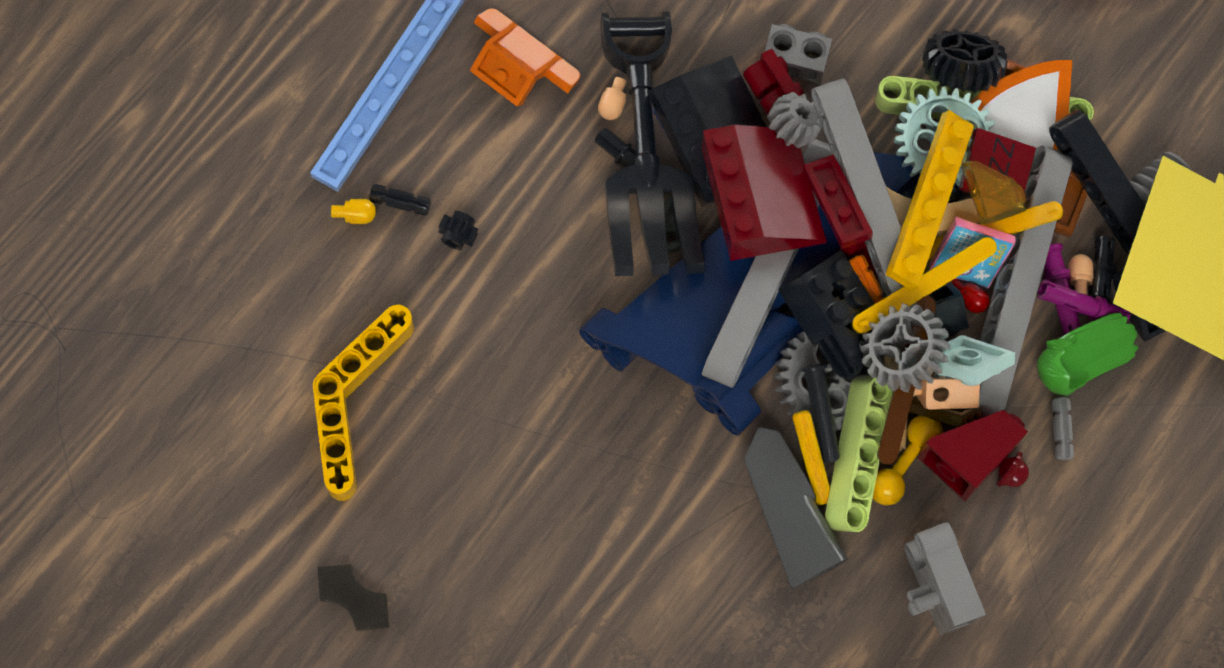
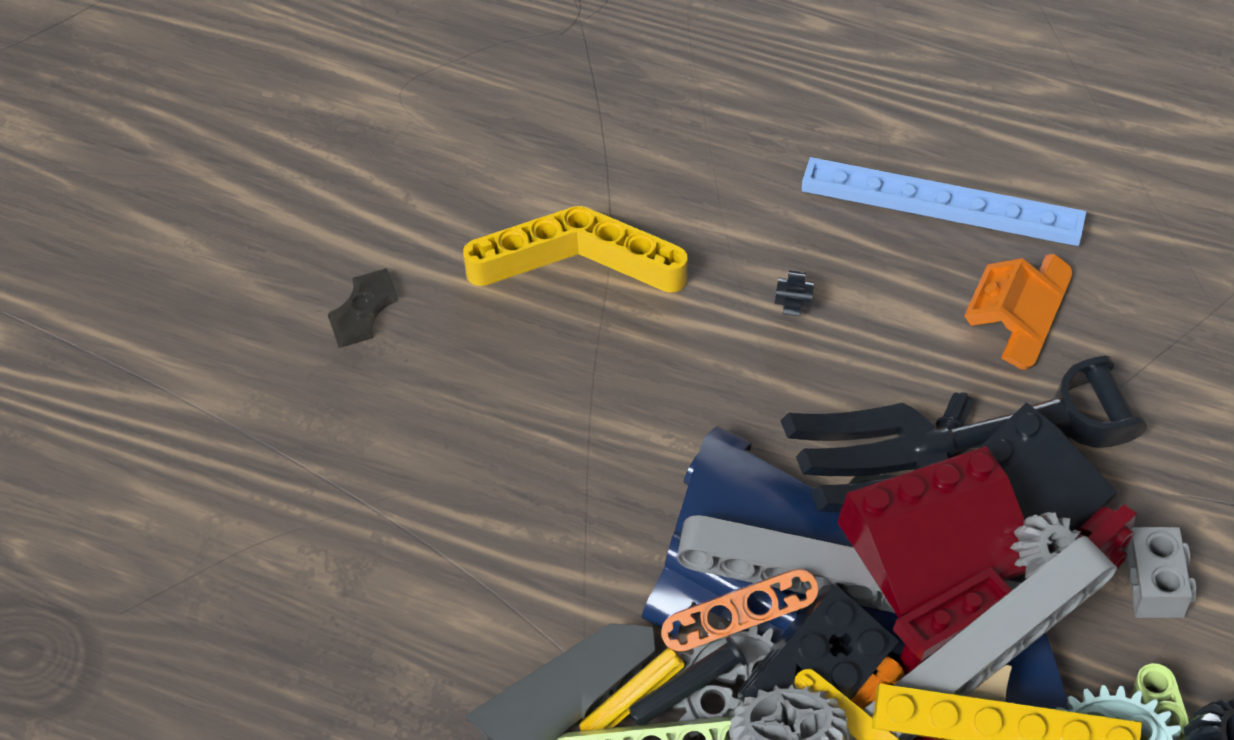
camera: 80 degrees right, 20 degrees down
(355, 211) = (784, 206): yellow cylinder -> none
(400, 199) = (813, 242): black axle -> none
(613, 100) = (1008, 401): light nougat cylinder -> none
(780, 354) = (741, 614): none -> orange beam

